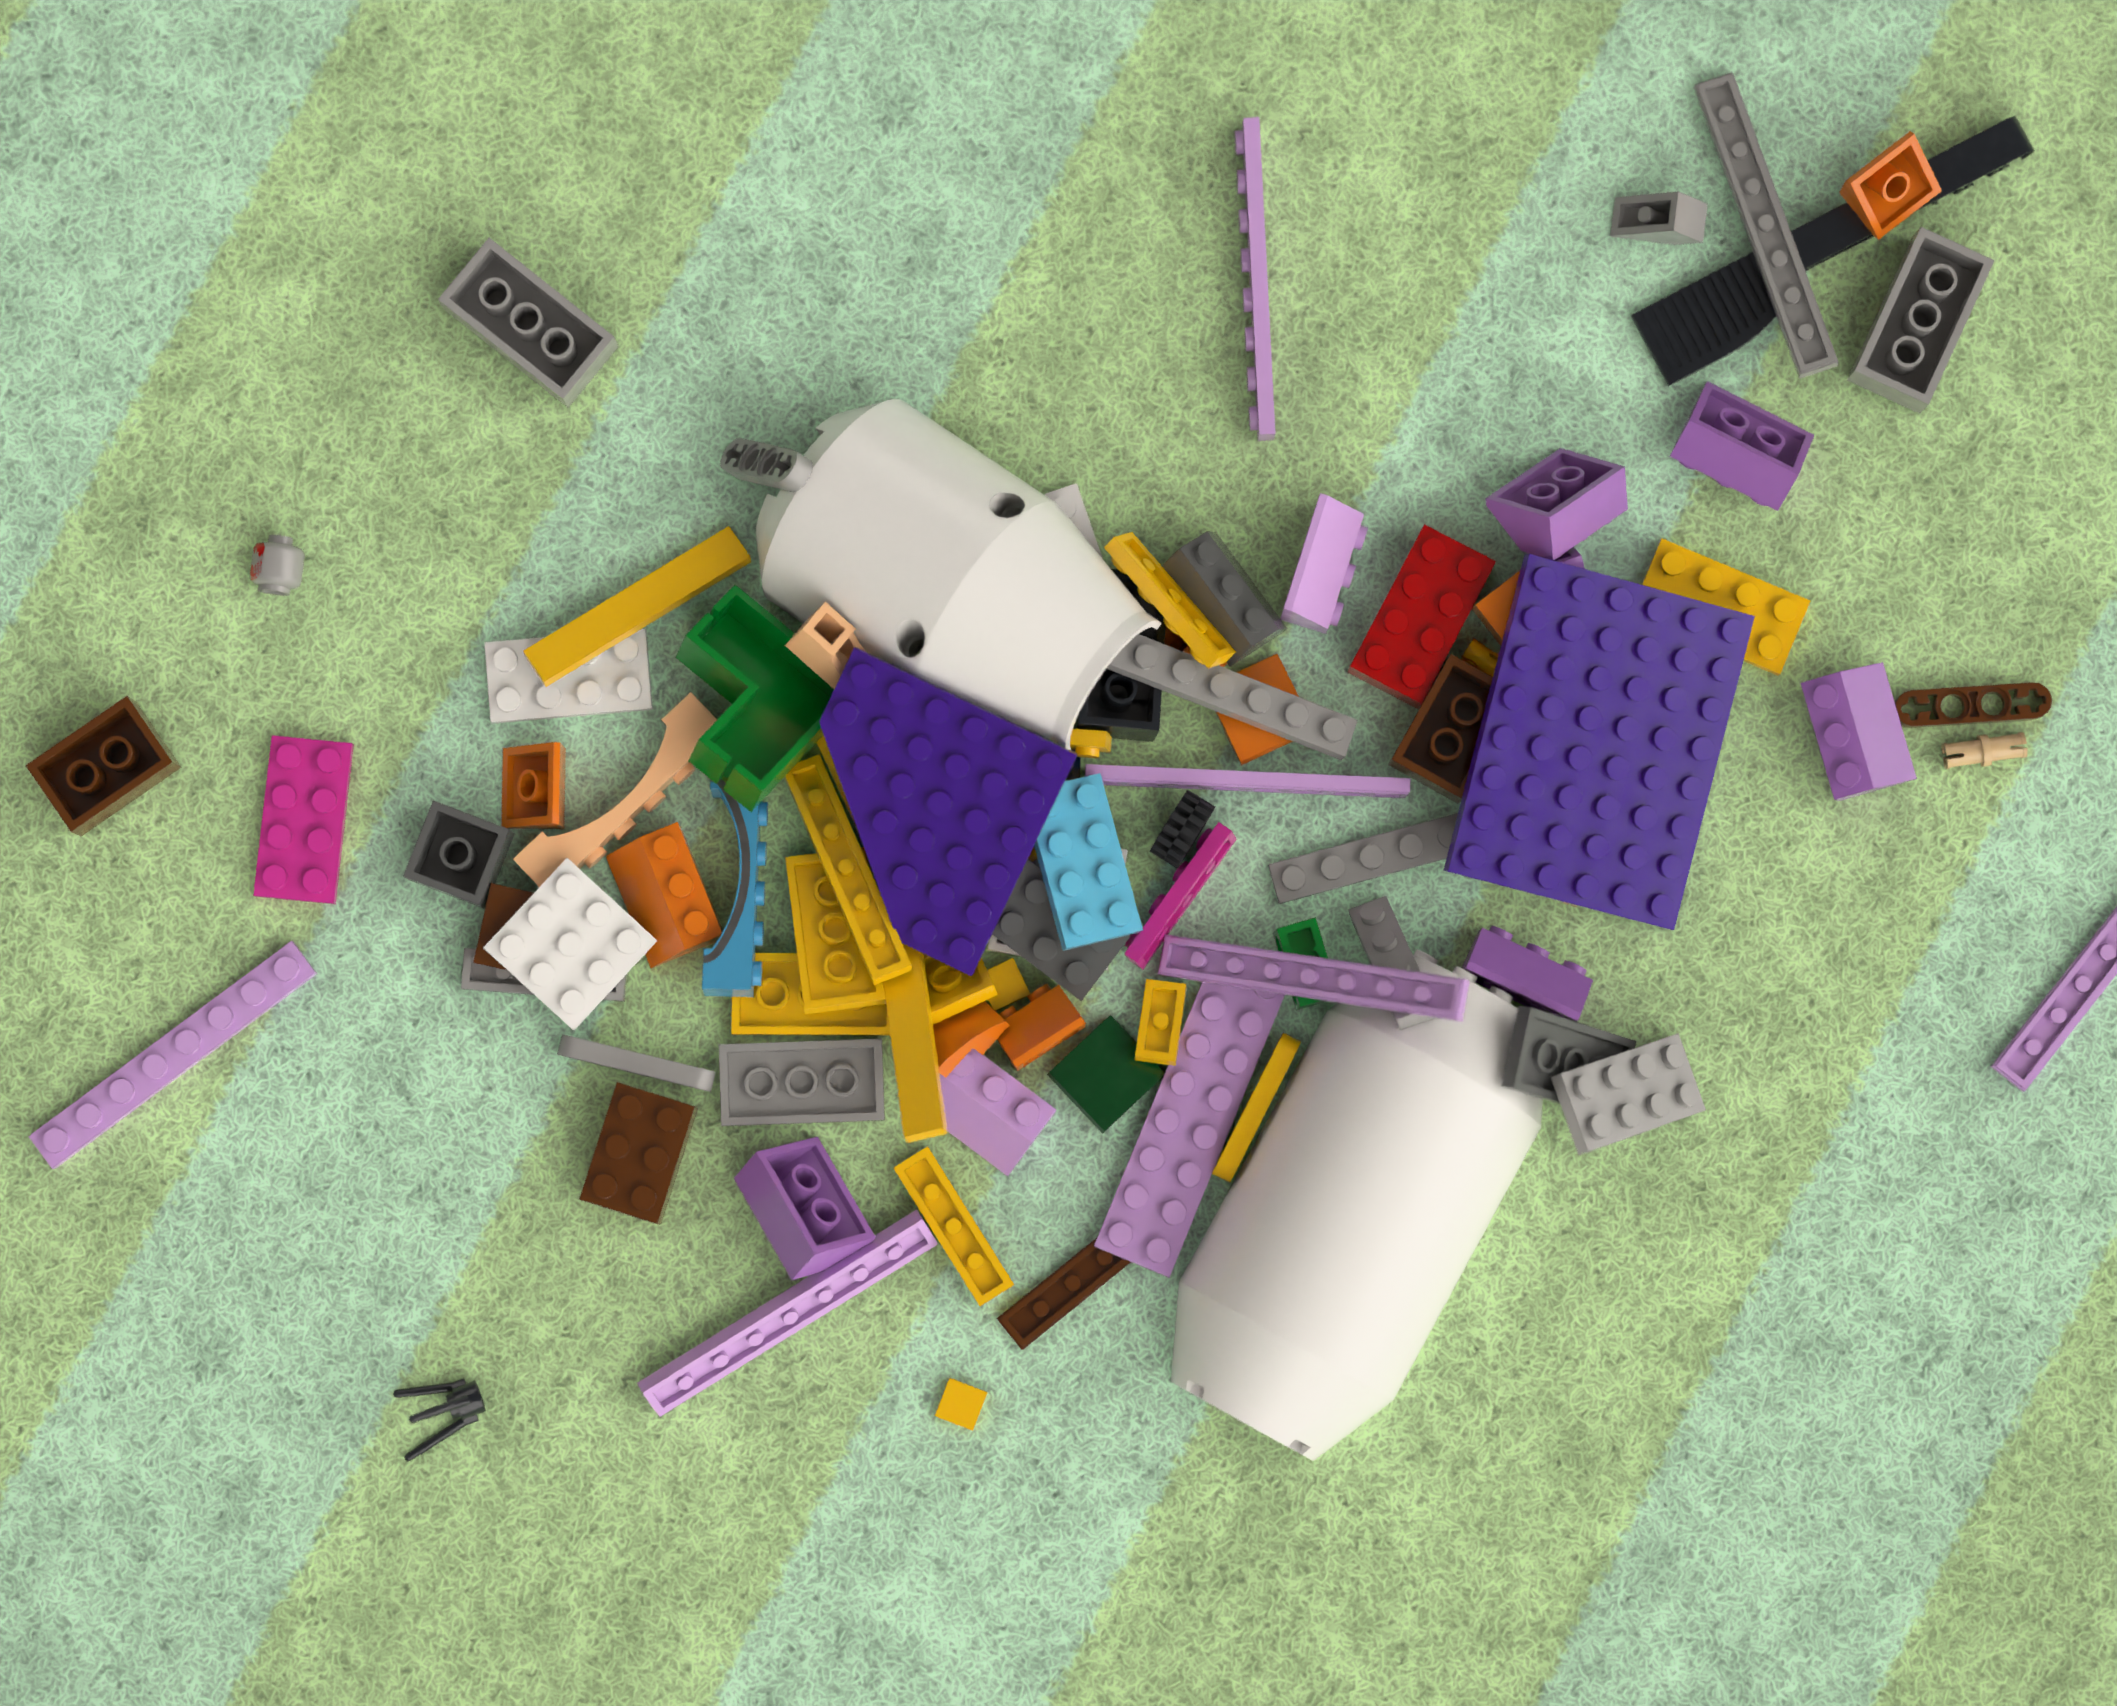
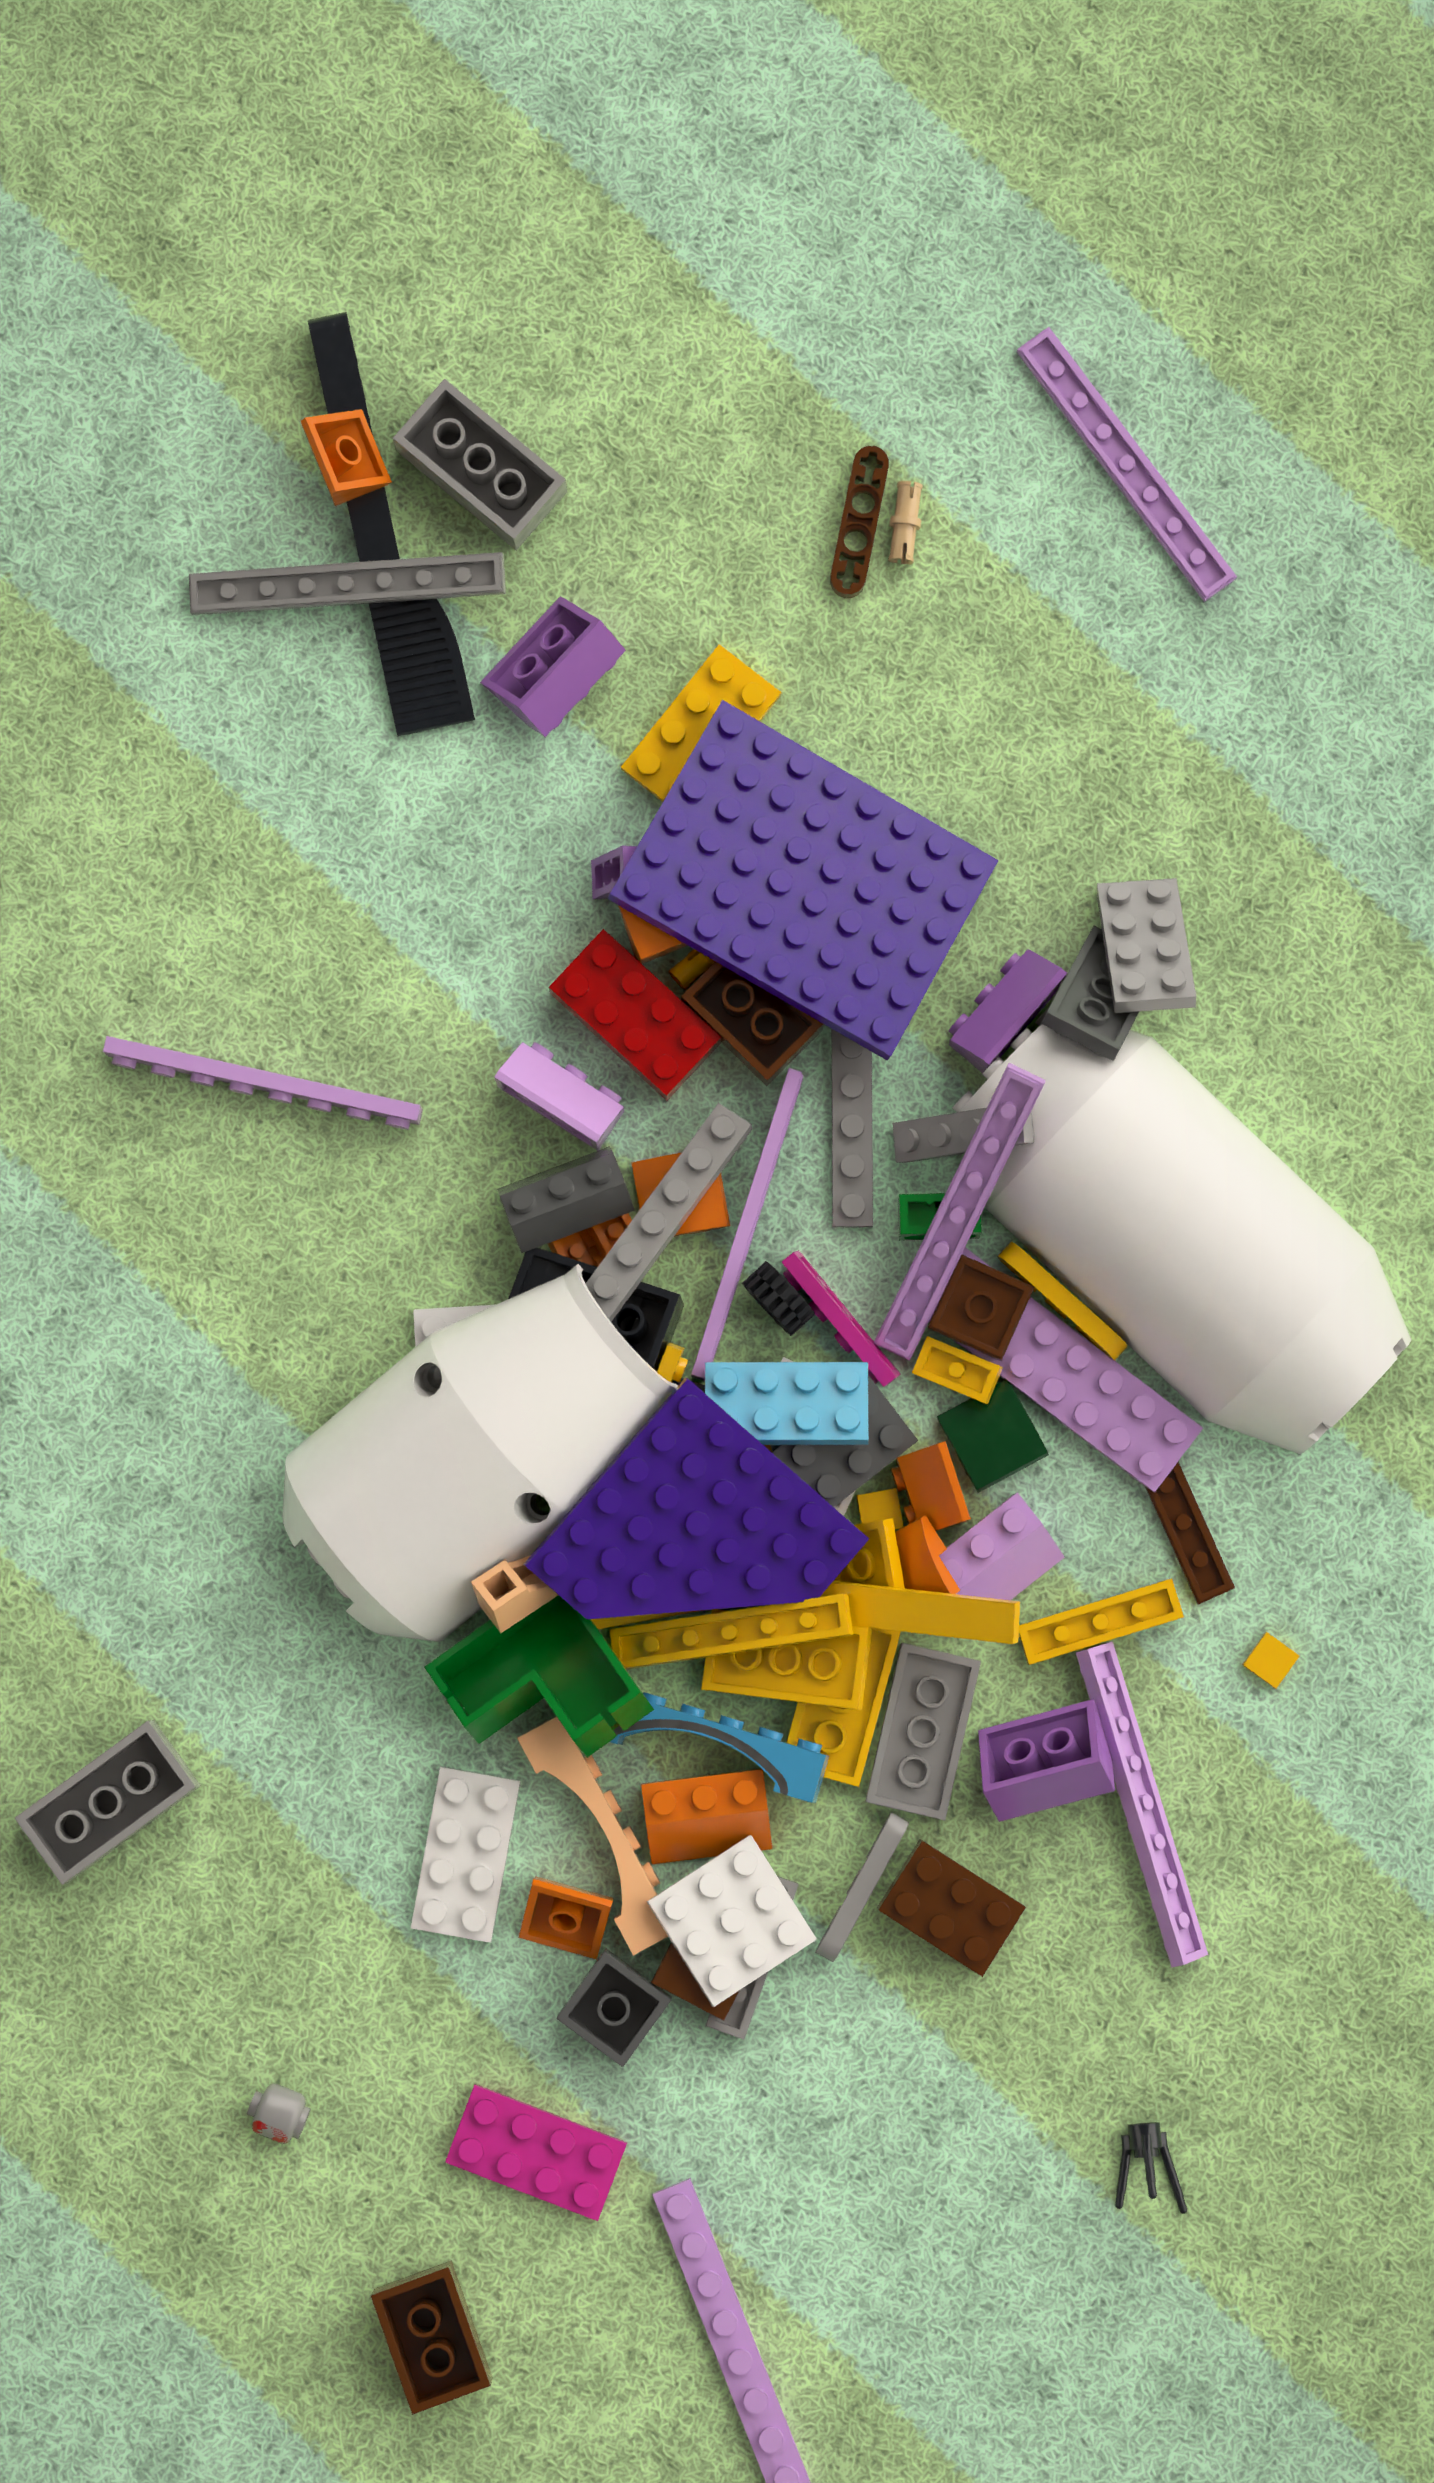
camera: 75 degrees left, 0 degrees up
(637, 606) = (417, 1768): yellow tile -> none
(766, 464) = (317, 1604): light grey beam -> none
(1169, 599) = (554, 1250): yellow plate -> none
(1227, 1028) = (981, 1307): none -> reddish brown tile
(1560, 502) = (562, 852): medium lavender slope -> none
(1659, 218) = (312, 682): light grey slope -> none
(1858, 731) = (857, 634): medium lavender slope -> none

